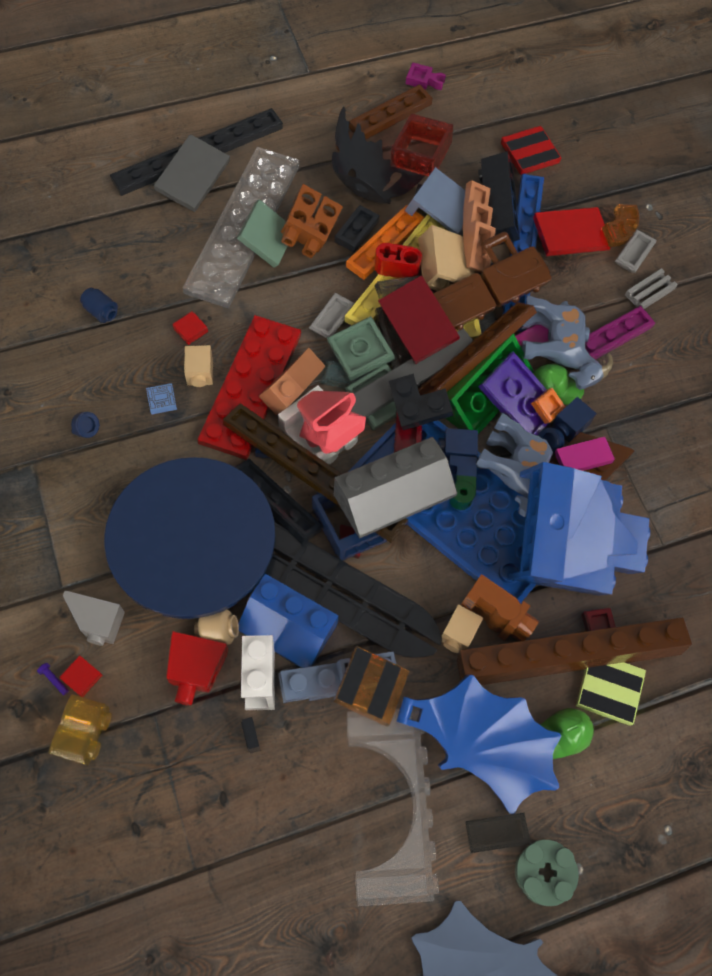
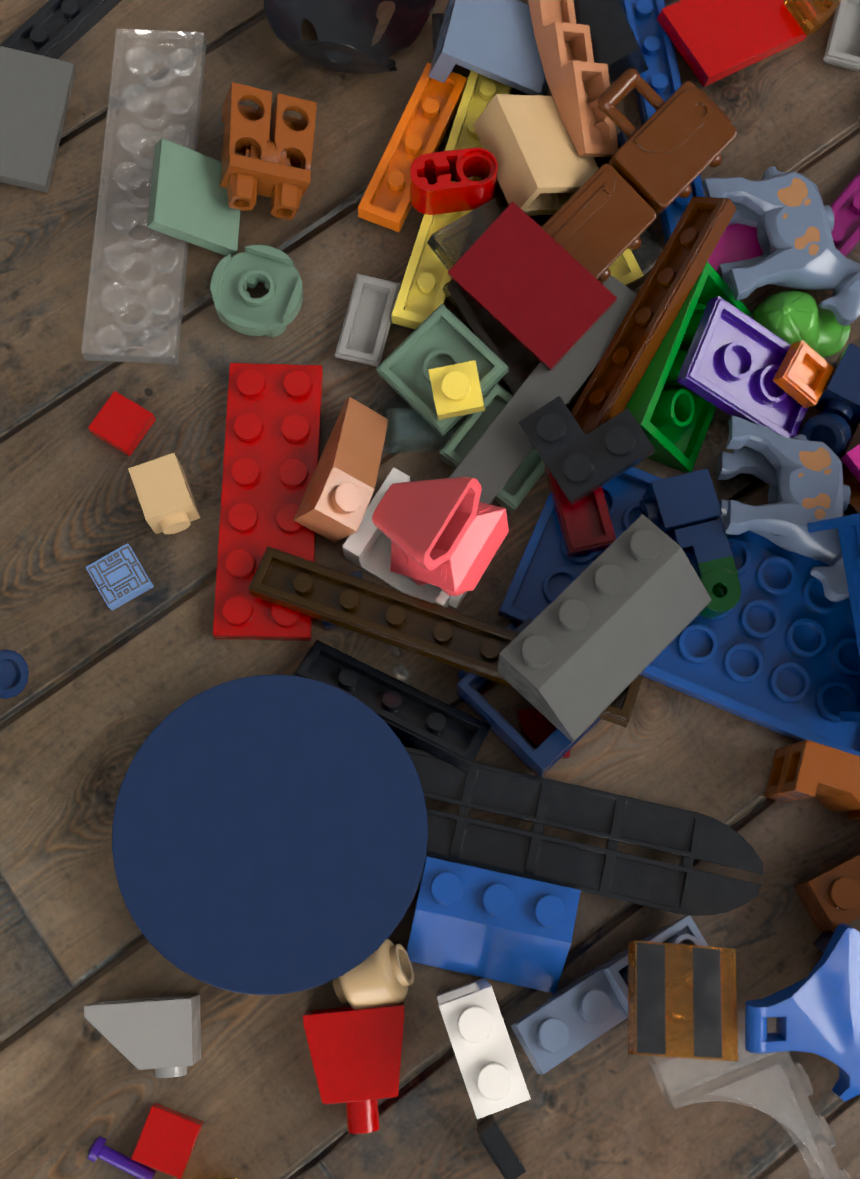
camera: 15 degrees left, 10 degrees up
(281, 298) = (261, 315): none -> sand green plate
(356, 228) = (353, 136): black plate -> none
(363, 358) = (456, 390): none -> light yellow plate
(461, 629) = (789, 835): tan brick -> none

